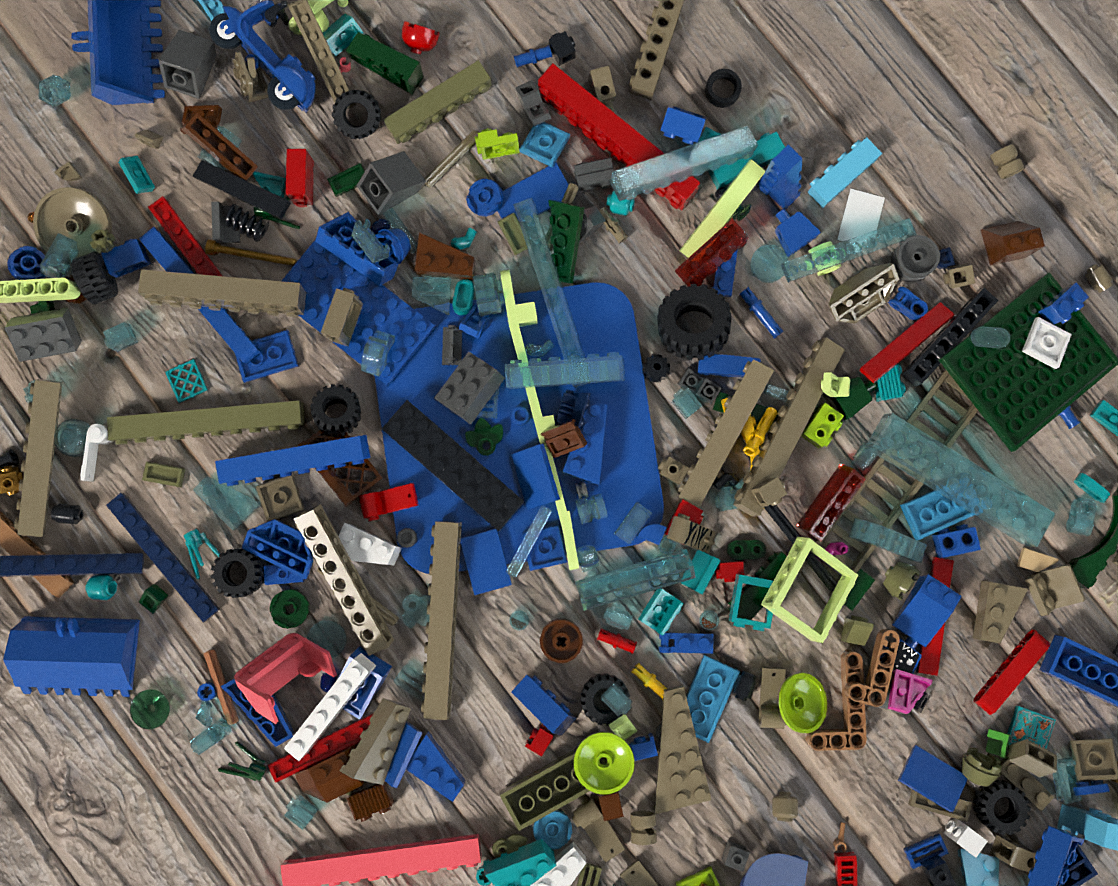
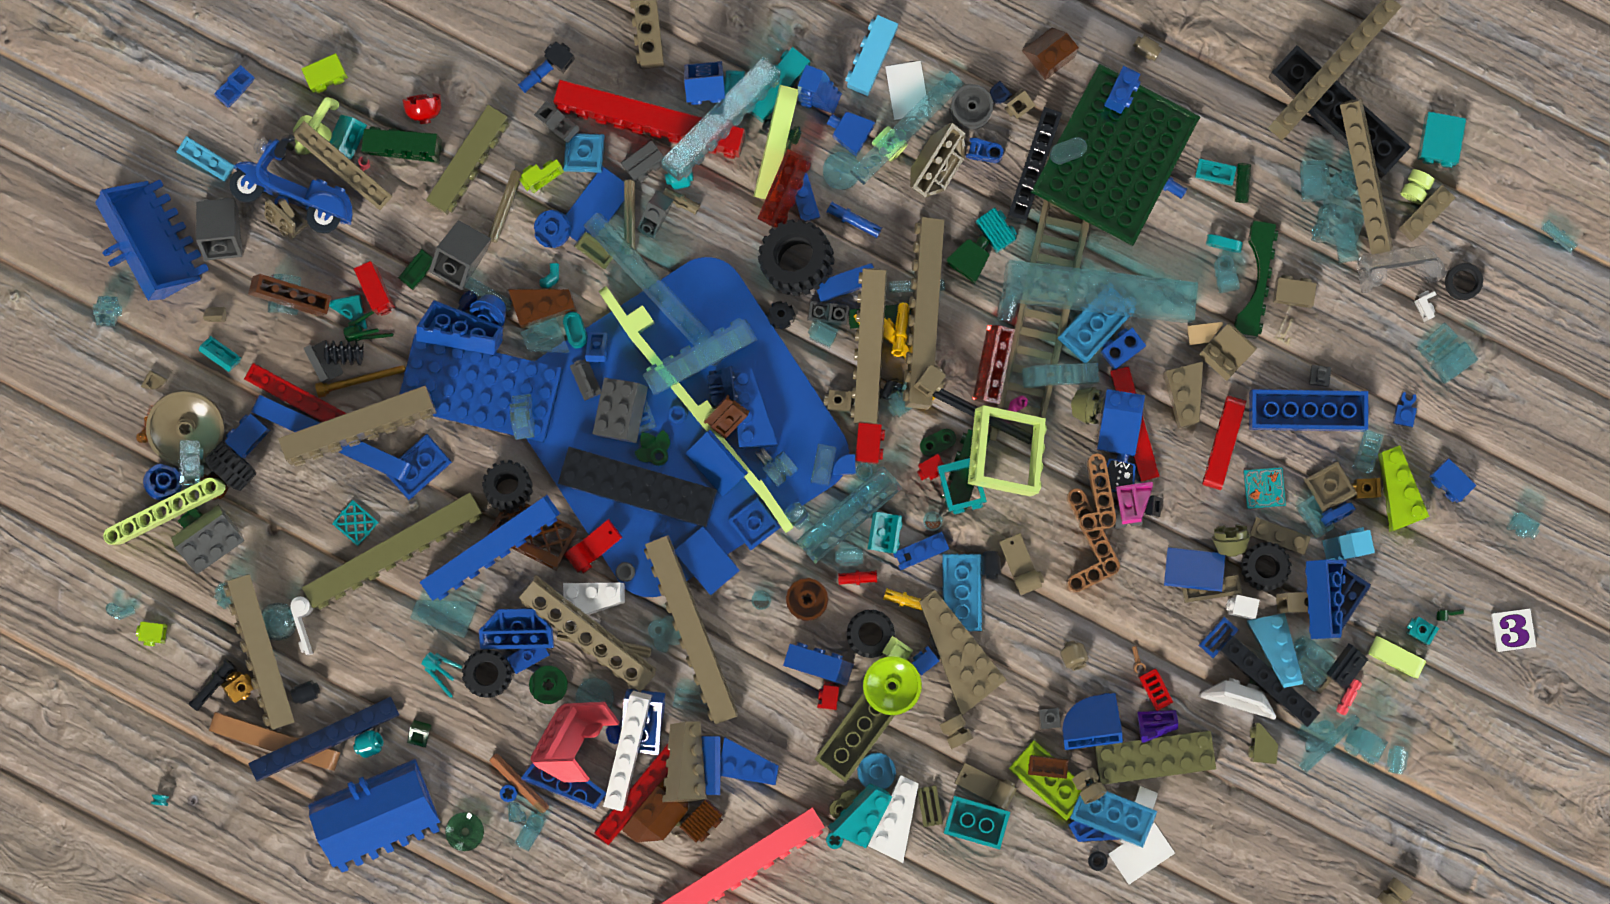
camera: 20 degrees left, 0 degrees up
(102, 241) = (222, 429): olive gear -> none
(120, 337) = (276, 510): clear light blue brick -> none
(163, 474) = (375, 617): olive tile -> none
(163, 557) = (410, 692): dark blue plate -> none
(210, 113) = (245, 273): reddish brown plate -> none
(241, 189) = (325, 324): black tile -> none
(255, 771) = (585, 841): dark green plant -> none
(280, 498) = (493, 589): dark tan plate -> none
(300, 811) = (643, 859): clear light blue brick -> none
(342, 122) = (399, 222): black tyre -> none
(342, 316) = (476, 398): dark tan window -> none
(369, 242) = (468, 319): clear light blue hinge -> none
(487, 294) = (596, 317): clear light blue brick -> none
(528, 541) = (737, 524): clear light blue axle -> none
(539, 350) = (667, 347): clear light blue arm -> none
(566, 231) = (641, 225): dark green wing -> none
(600, 832) = (917, 752): dark tan door -> none
(601, 81) = (611, 72): dark tan torso -> none
(610, 806) = (915, 721): reddish brown brick -> none
(617, 700) = (879, 626): clear light blue brick -> none
(691, 534) = (880, 450): dark tan door -> none
(704, 569) = (905, 474): teal panel -> none
(723, 74) = (721, 40): black tyre -> none
(802, 703) = (1053, 549): lime dish -> none
(822, 425) = (955, 298): lime brick -> none
(835, 386) = (949, 257): yellowish green bracket -> none
(856, 630) = (1067, 469): olive slope -> none
(861, 586) = (1054, 431): dark green tile -> none
(906, 342) = (997, 187): red tile -> none
(998, 742) = (1239, 511): bright green panel -> none
(1033, 758) = (1273, 510): dark tan brick -> none
(1046, 342) = (1122, 131): white tile -> none

